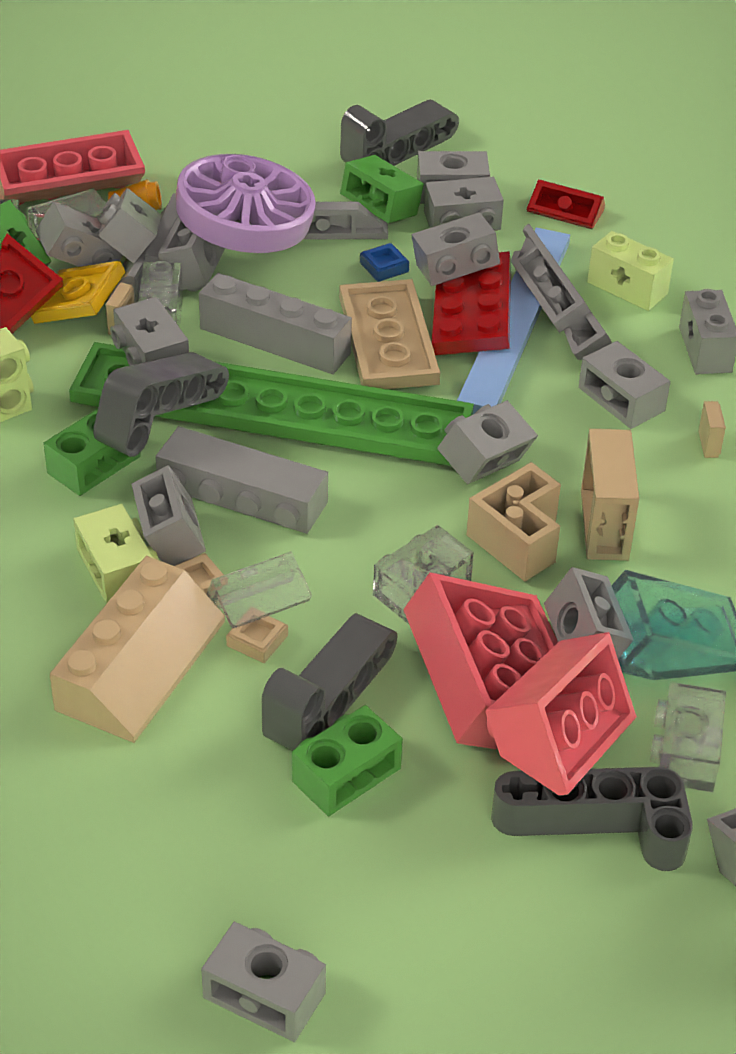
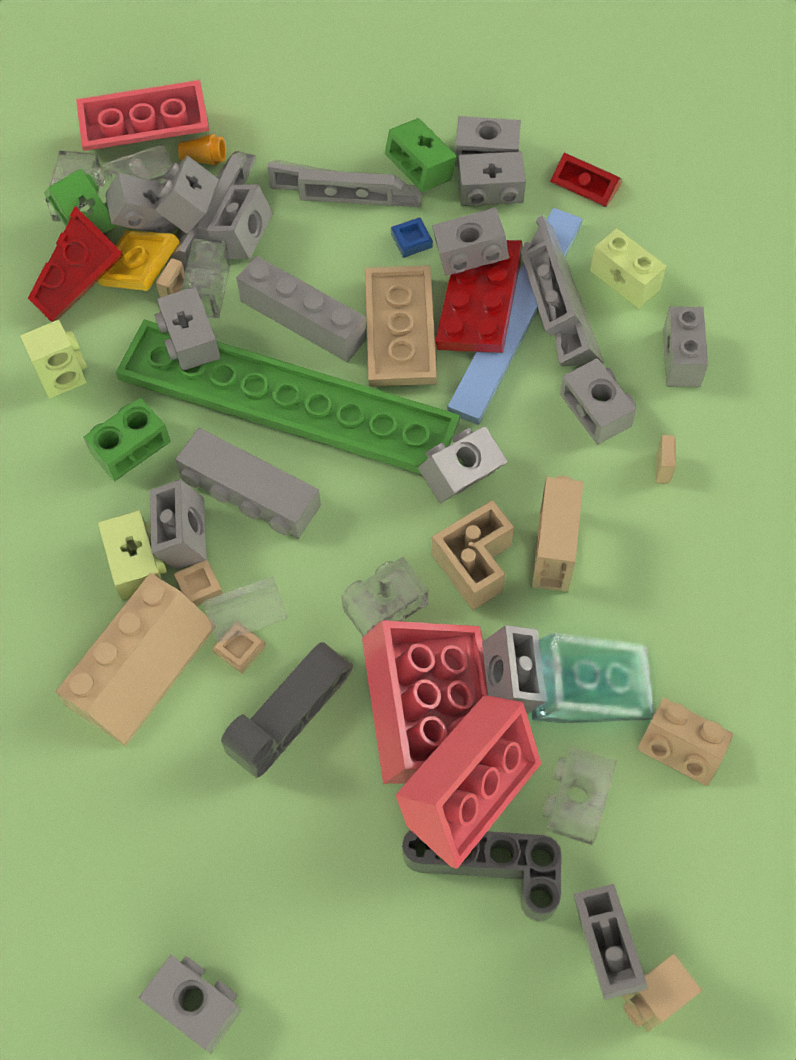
camera: 10 degrees right, 20 degrees up
(149, 389) = (177, 398): dark grey beam -> none
(248, 189) = (288, 177): lavender piece -> none
(346, 759) = (296, 798): bright green brick -> none
(397, 136) = (445, 90): dark grey beam -> none

